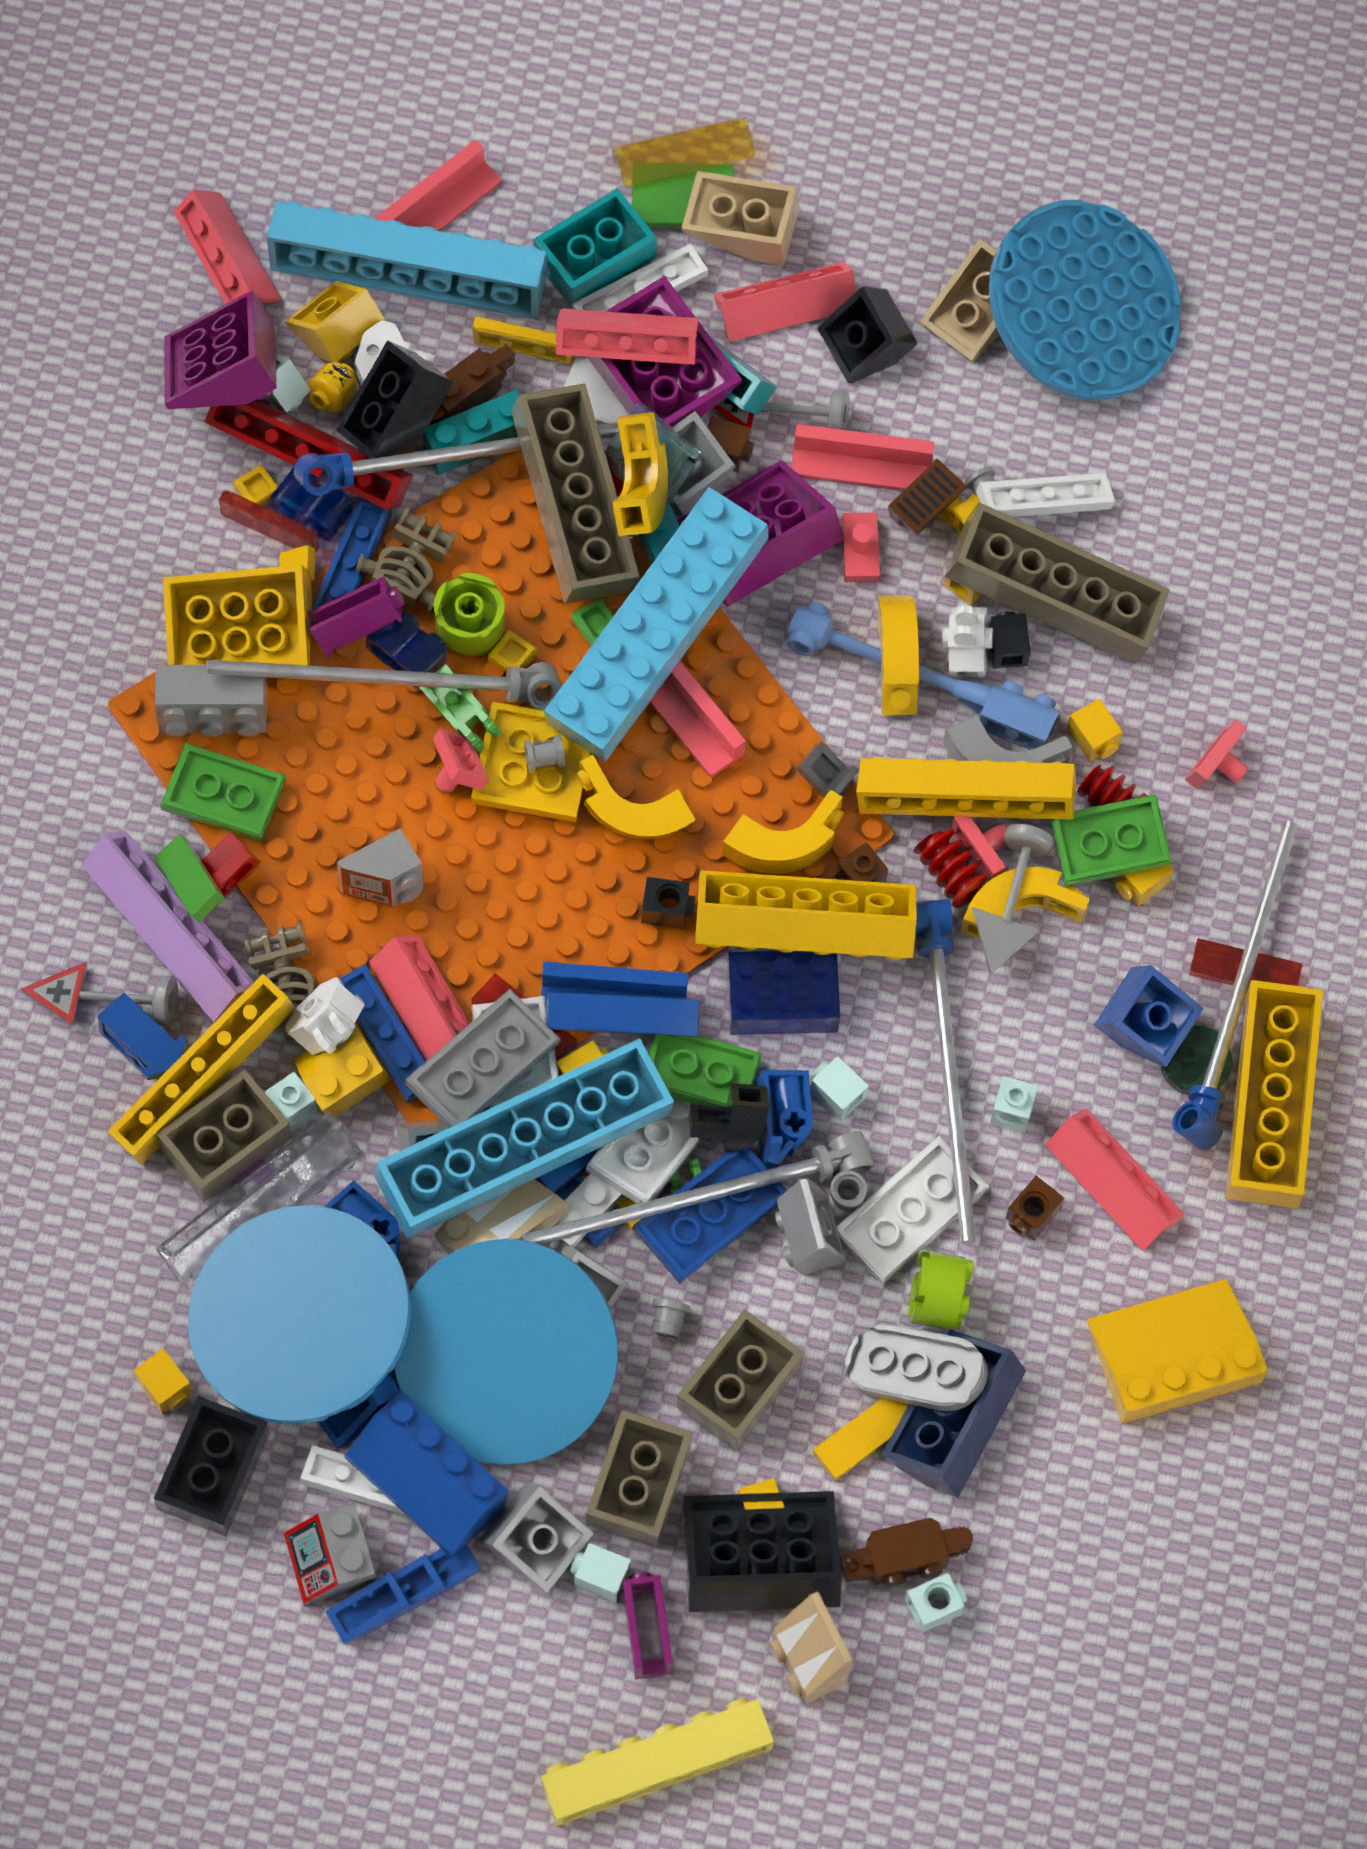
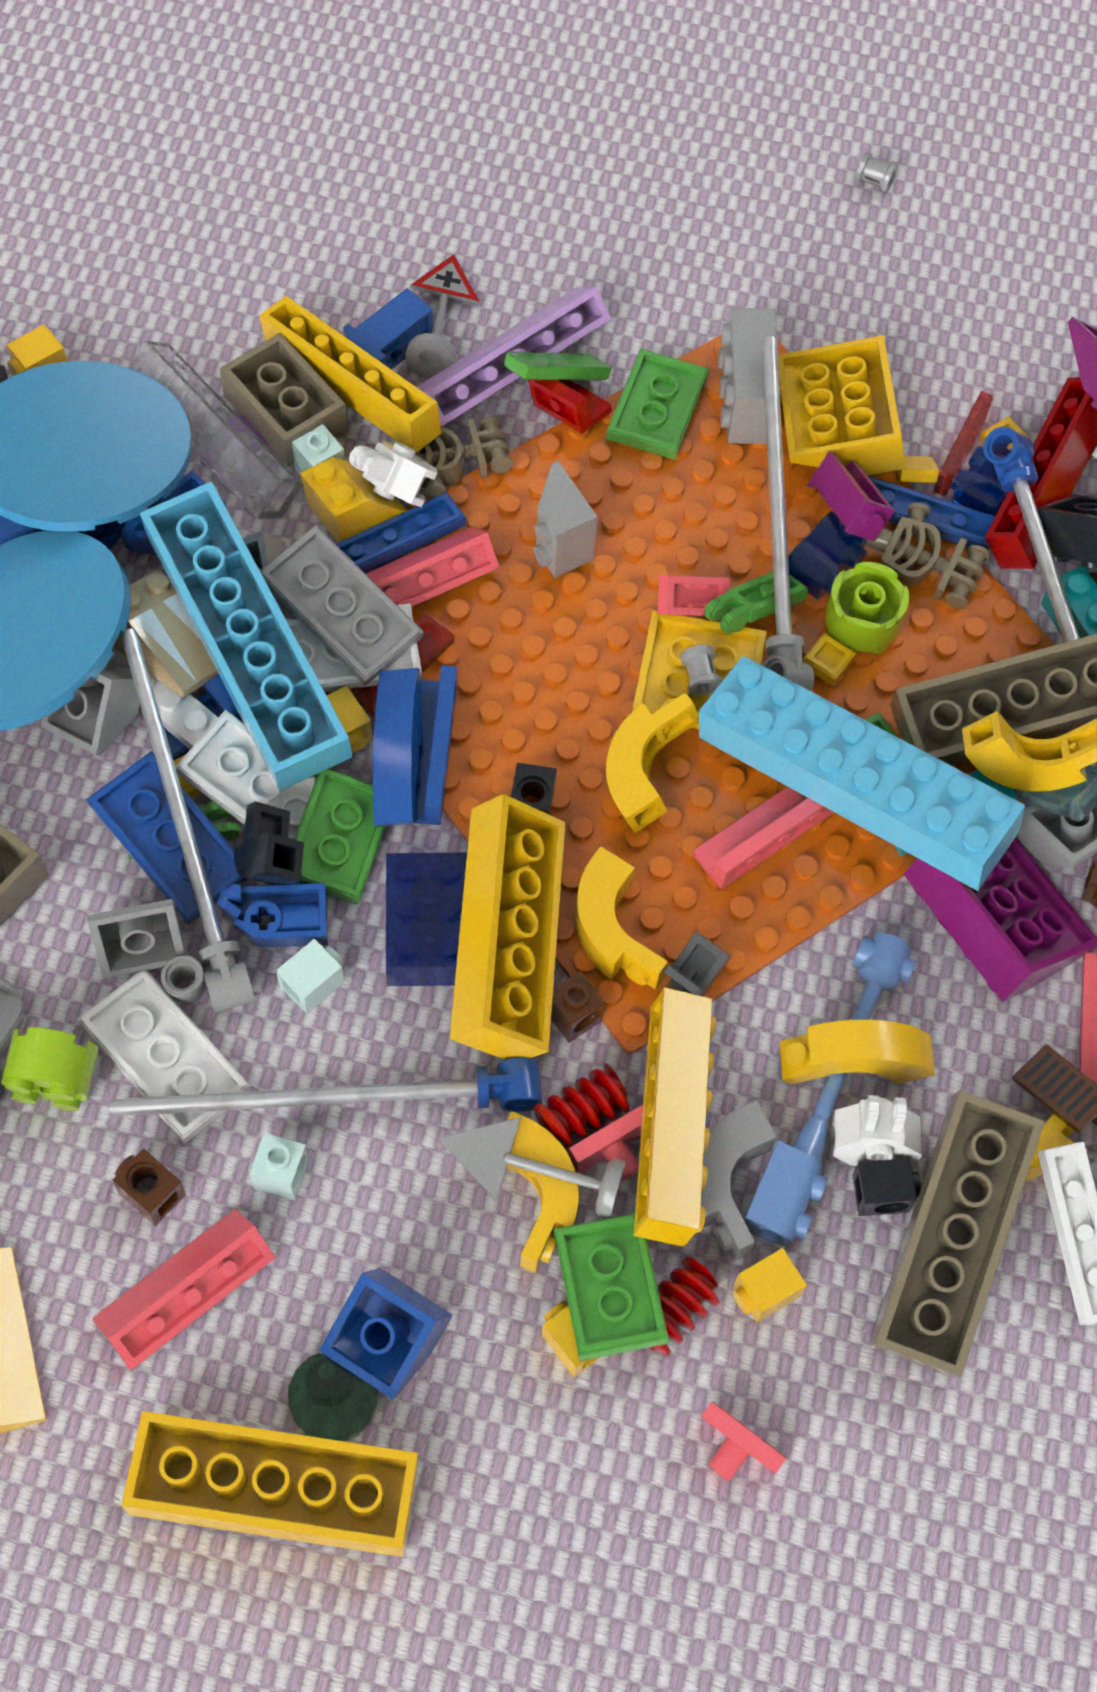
camera: 90 degrees right, 5 degrees down
(669, 1317) = (57, 798): light grey piece -> none
(860, 547) = (996, 1025): coral tile -> none
(1198, 1117) = (243, 1388): flat silver piece -> none
(1221, 964) = (453, 1465): clear red tile -> none

